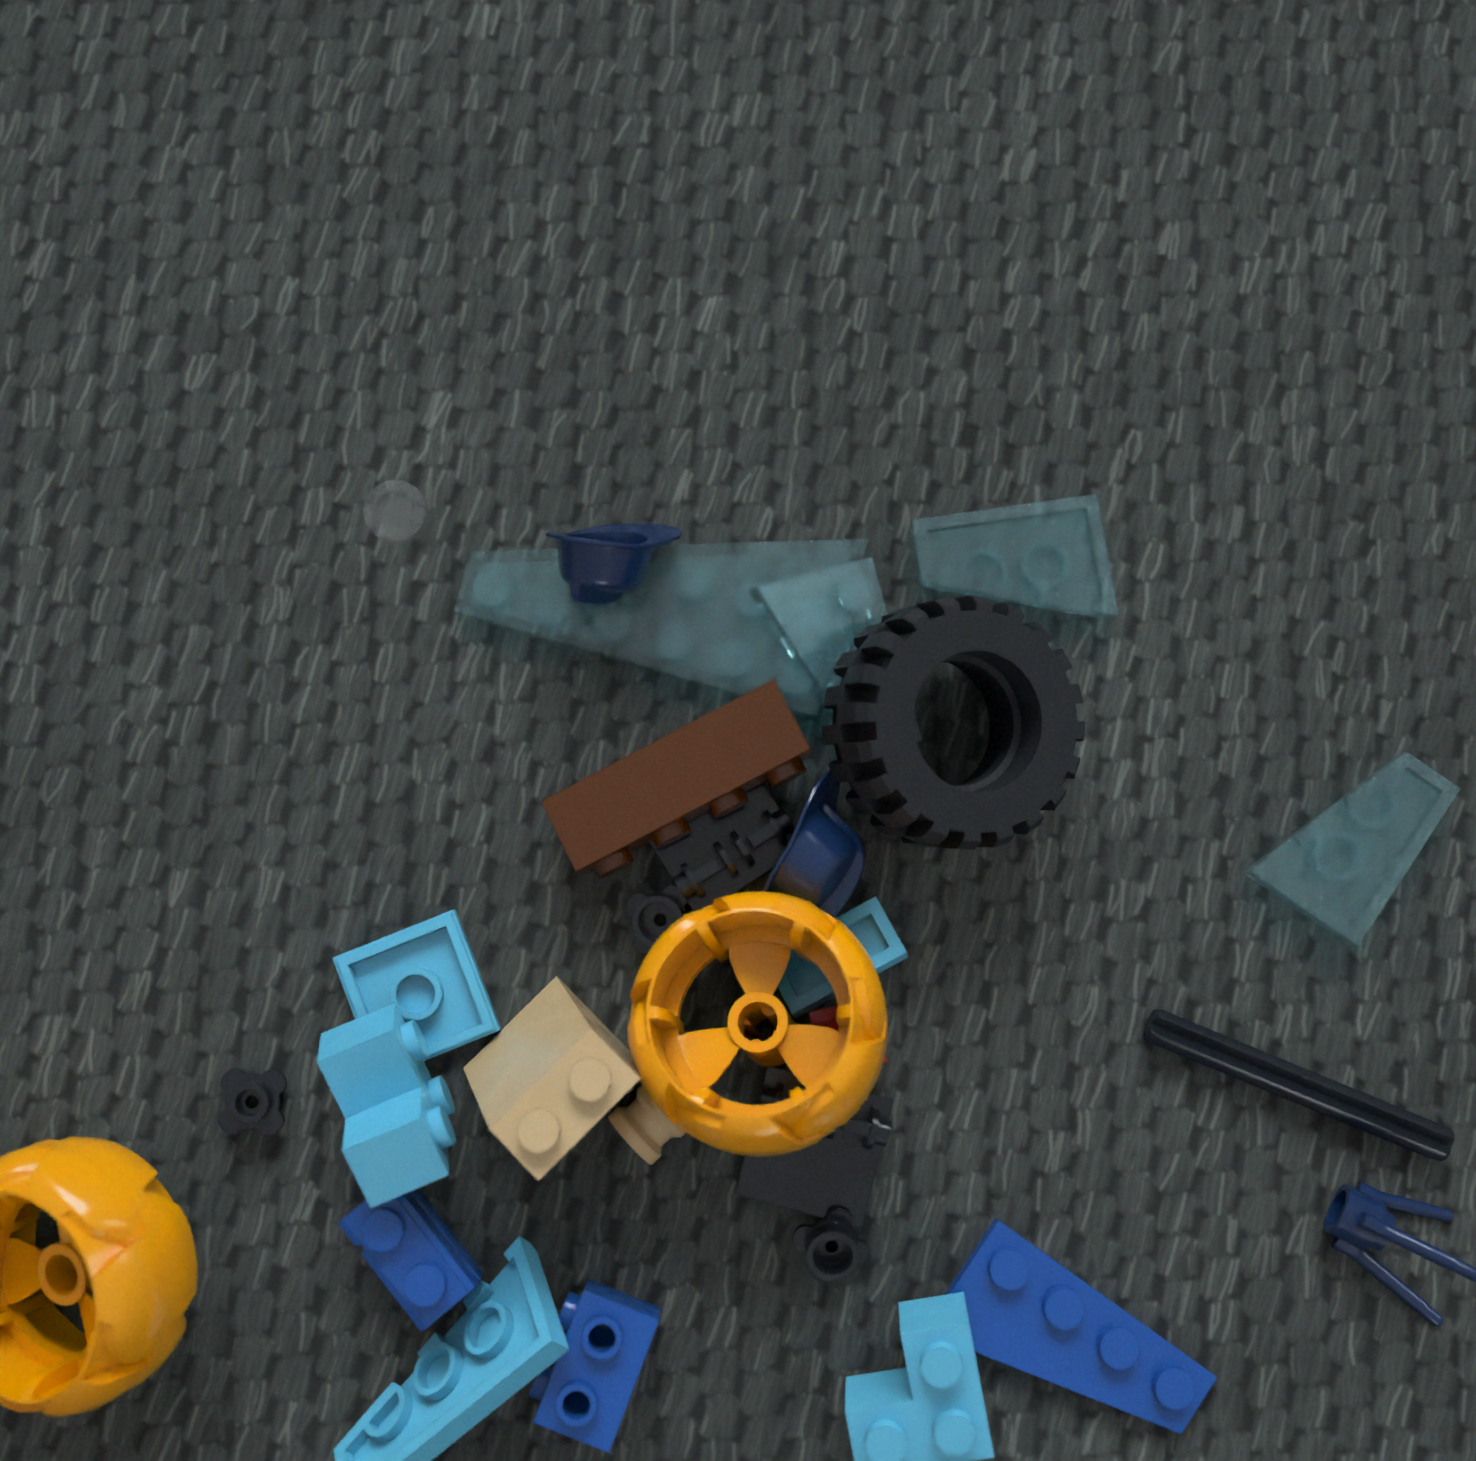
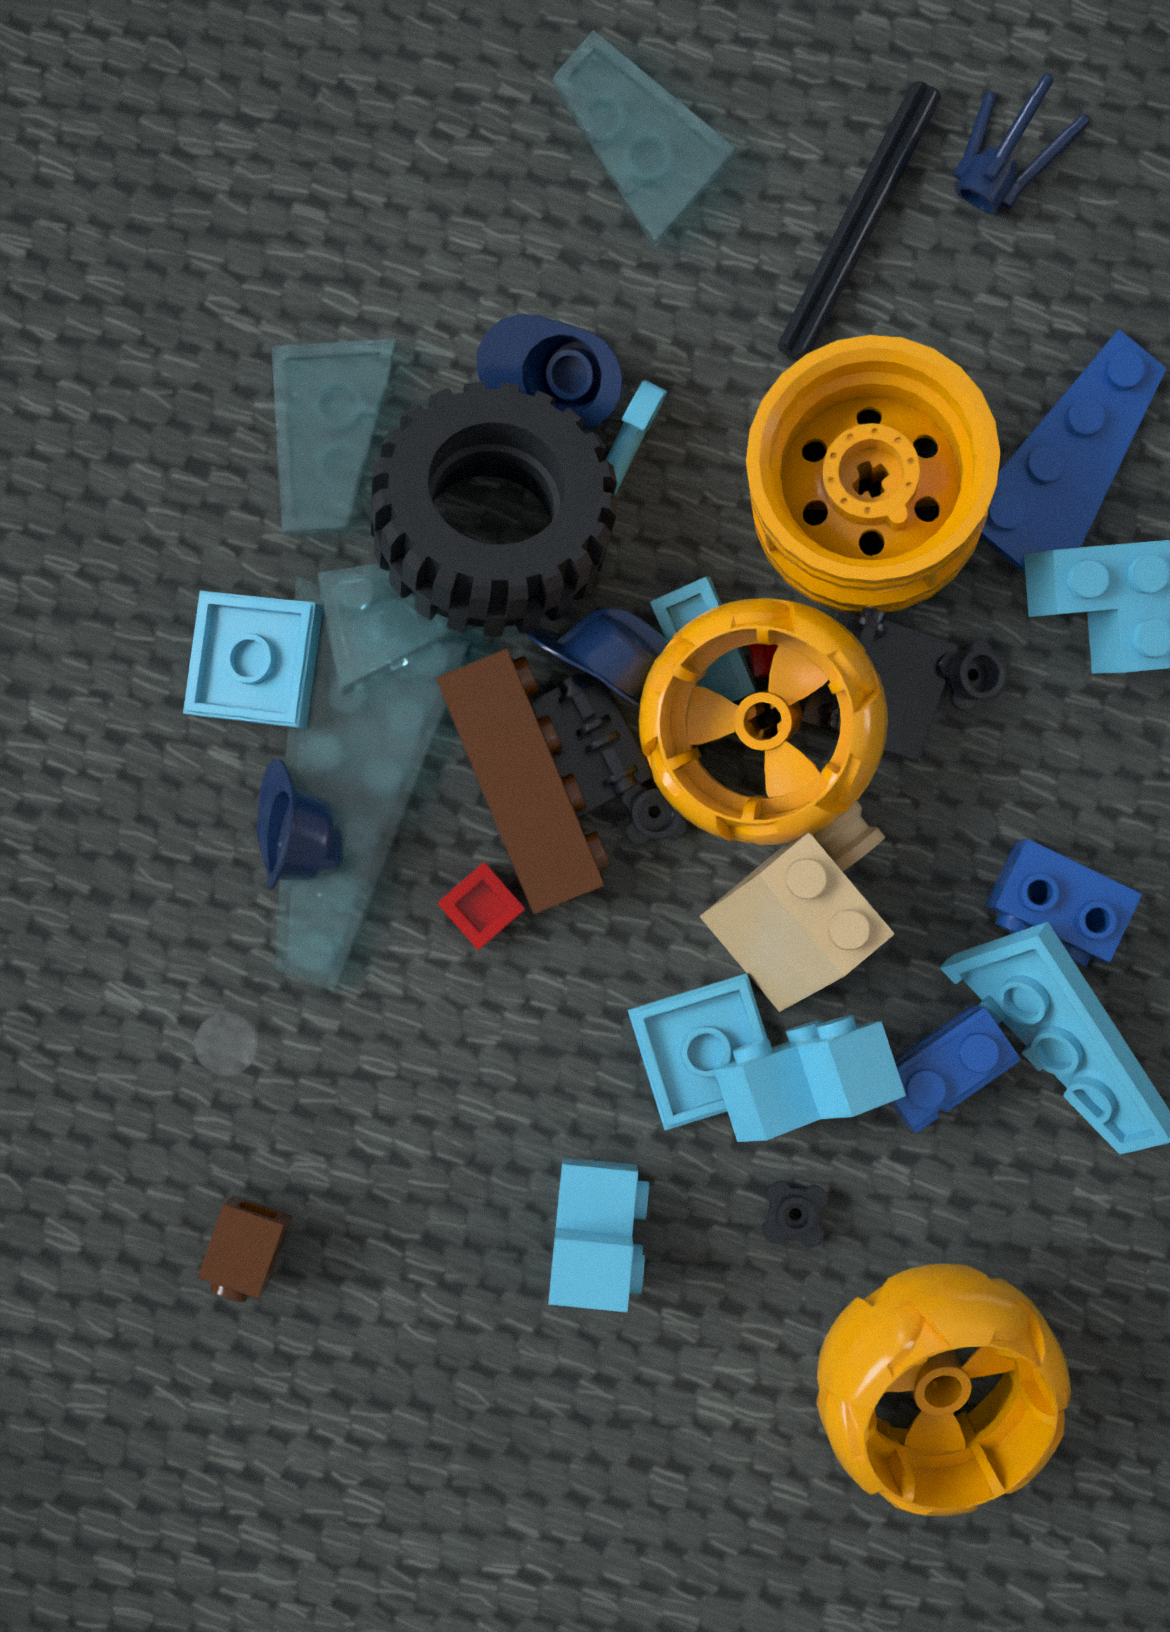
camera: 80 degrees left, 5 degrees up
(189, 542) = (244, 1249): none -> reddish brown brick
(201, 890) = (593, 1238): none -> medium azure brick
(550, 750) = (481, 906): none -> red plate
(780, 504) = (253, 659): none -> medium azure tile
(1062, 867) = (637, 421): none -> medium azure bar
(1102, 1056) = (917, 398): none -> light orange wheel
(1113, 776) = (555, 360): none -> dark blue piece

